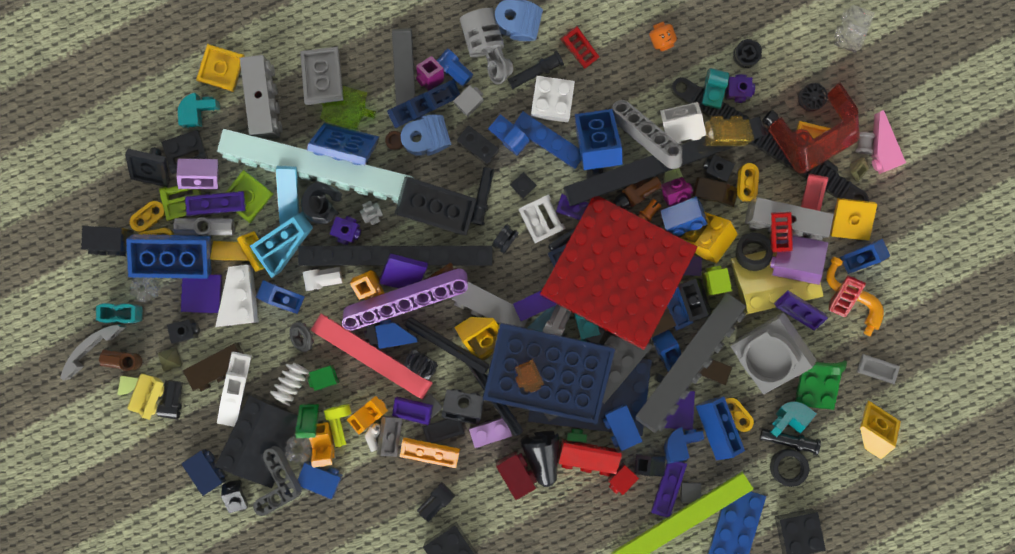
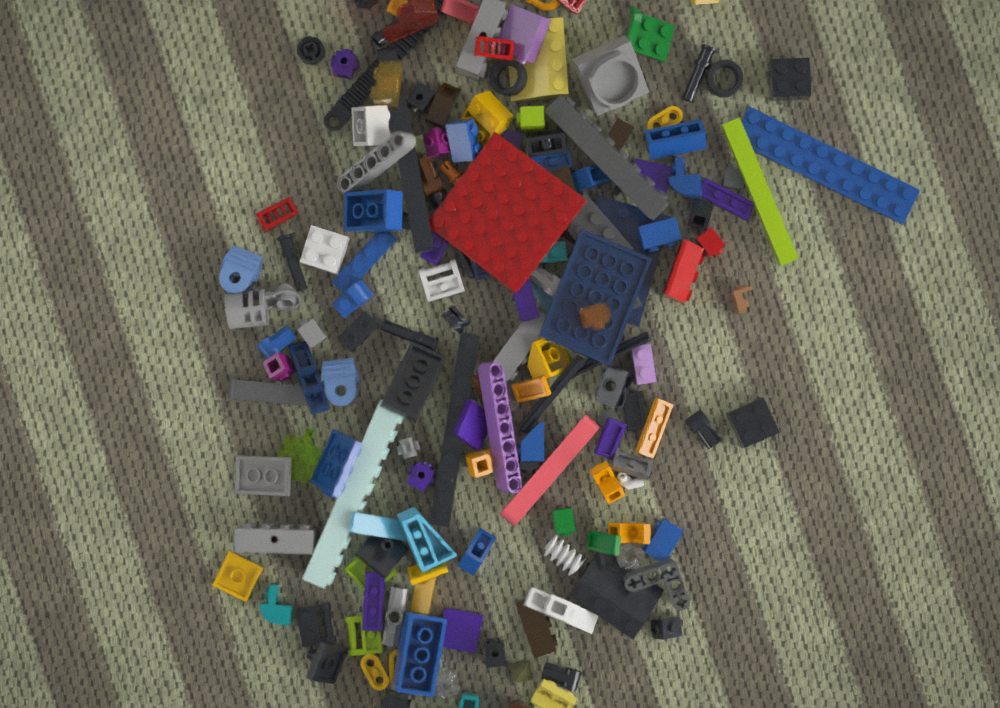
camera: 80 degrees left, 0 degrees up
(197, 173) = (341, 613): lavender brick -> none
(203, 471) = (637, 653): dark blue brick -> none
(238, 298) = (471, 592): white wedge -> none
(262, 204) = (381, 554): none -> black tile
(301, 344) = (525, 540): dark grey gear -> none
(316, 205) = (392, 500): black piece -> none
(320, 278) = (465, 512): white piece -> none
(333, 415) = (602, 516): neon yellow piece -> none
(393, 140) = (339, 413): reddish brown tile -> none
(420, 364) = (566, 422): black gear -> none
(448, 324) = (531, 389): none -> light orange tile
(516, 475) = (688, 346): dark red brick -> none
(523, 185) = (405, 293): black plate -> none
(542, 456) = (675, 317): black cone -> none
(568, 518) = (740, 302): none -> medium nougat bracket
(576, 435) = (660, 280): green plate -> none
(663, 36) = (280, 130): orange head -> none
(715, 86) = (340, 88): teal brick -> none
(749, 183) = (439, 70): yellow plate -> none
(794, 414) = (673, 65): teal brick -> none
(801, 310) = (573, 41): dark purple tile -> none

